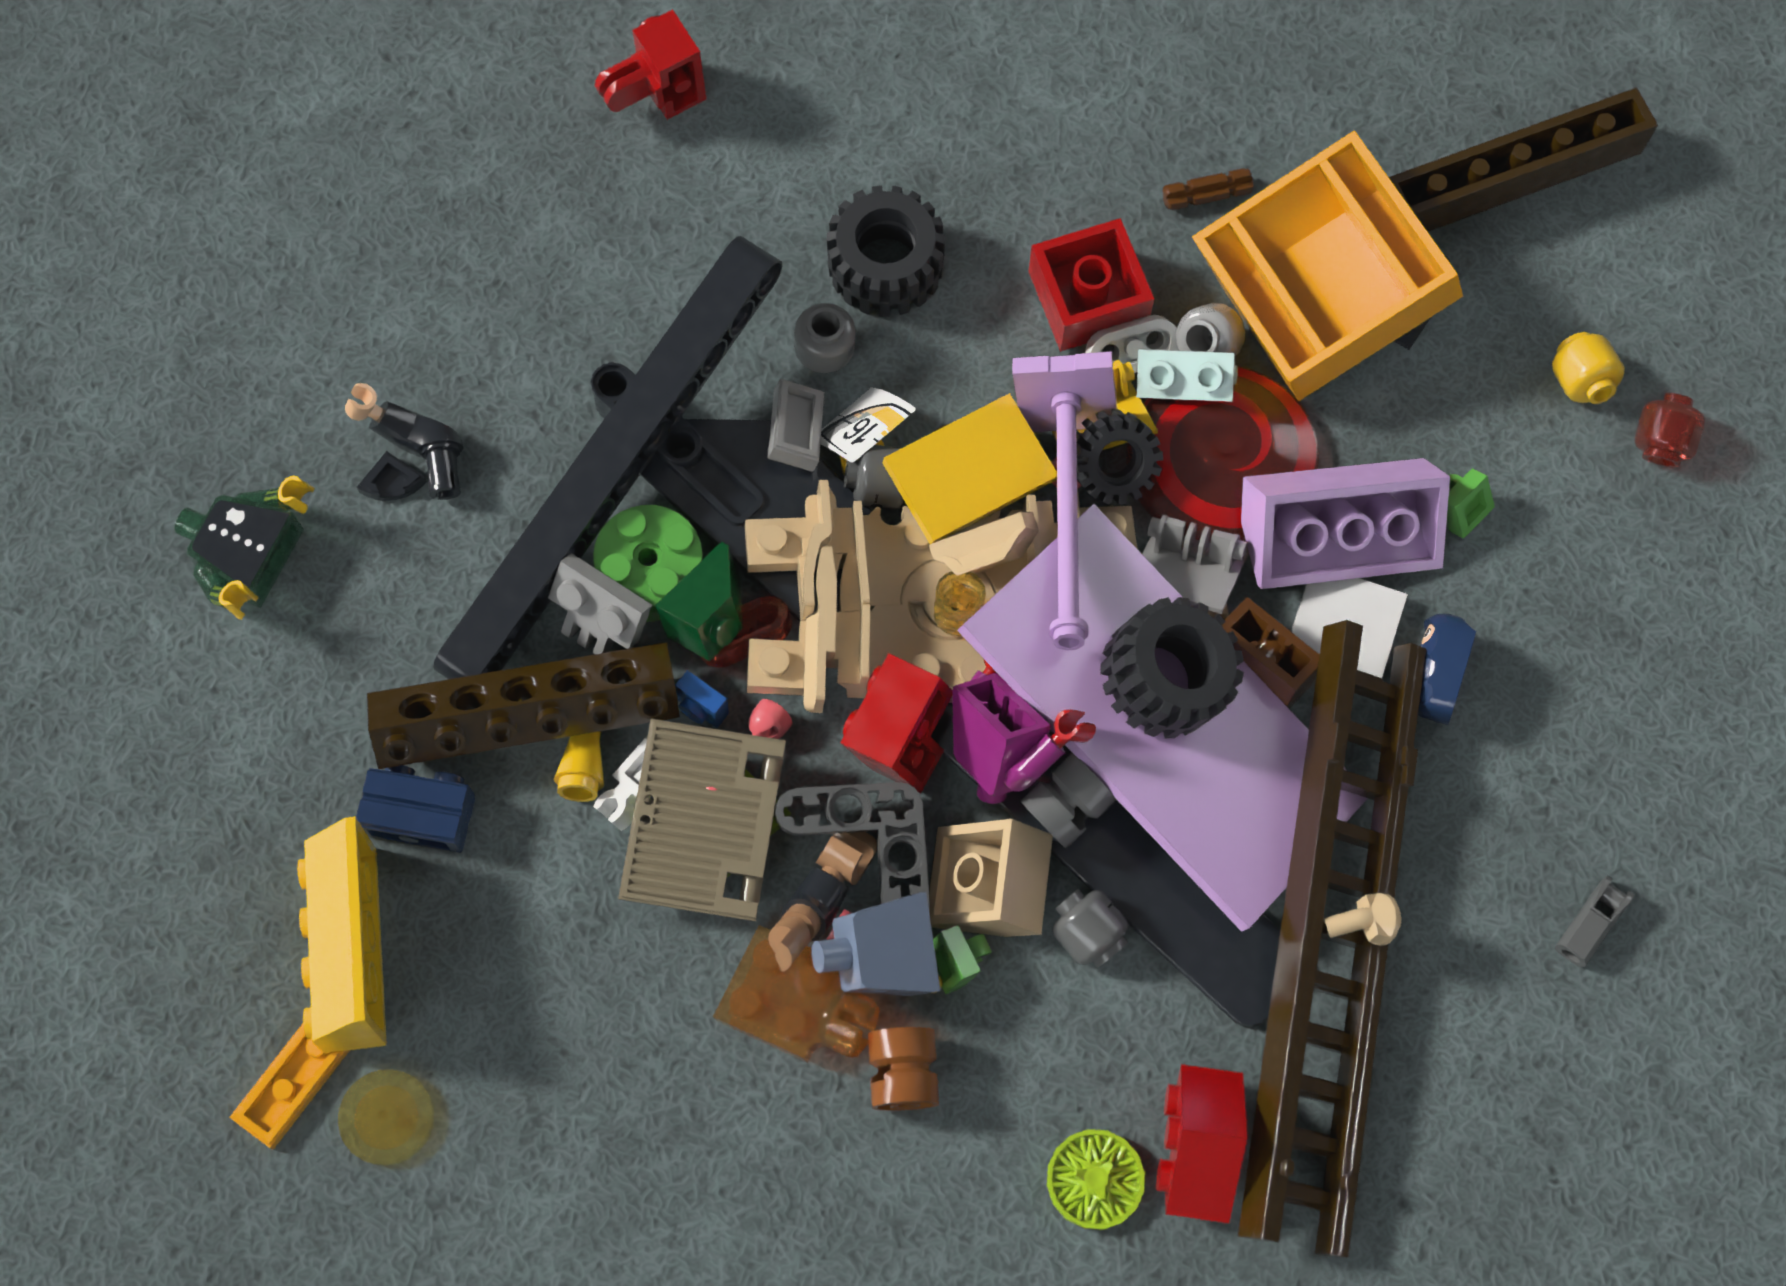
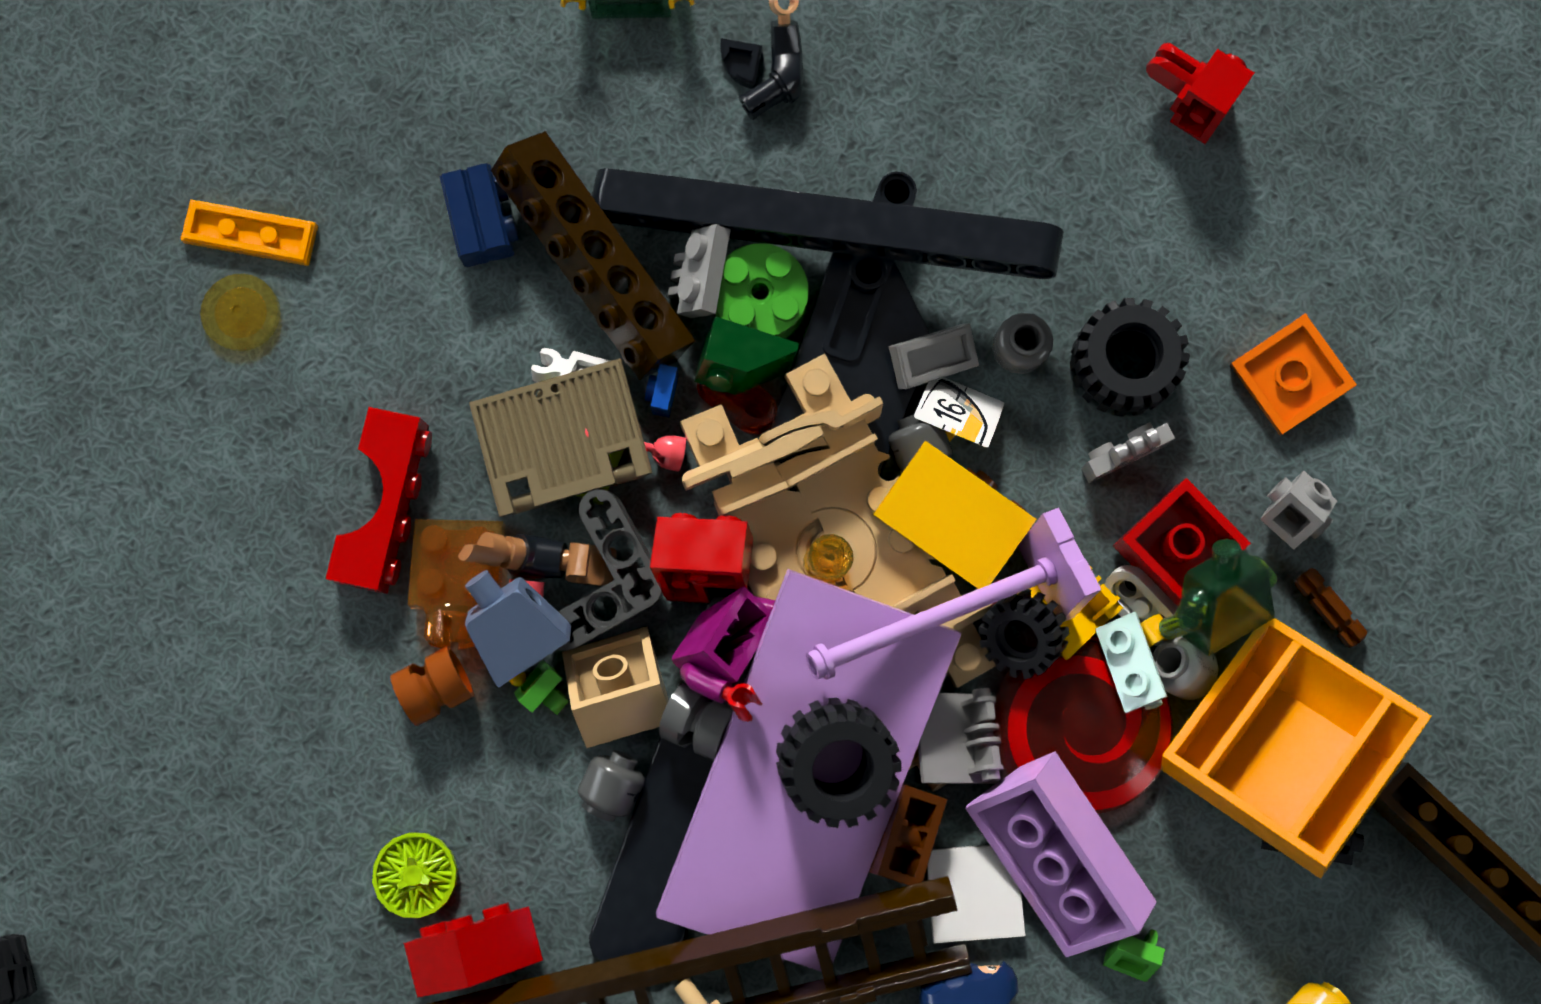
camera: 70 degrees right, 10 degrees up
(342, 939) = (349, 213): yellow slope -> none
(581, 769) = (567, 324): yellow cone -> none
(624, 1005) = (369, 554): none -> red arch
(971, 121) = (1293, 374): none -> orange plate
(975, 277) = (1140, 444): none -> light grey hinge
(987, 544) = (883, 558): tan slope -> none
(1104, 169) = (1299, 509): none -> light grey brick
(1167, 264) = (1218, 601): none -> clear green torso

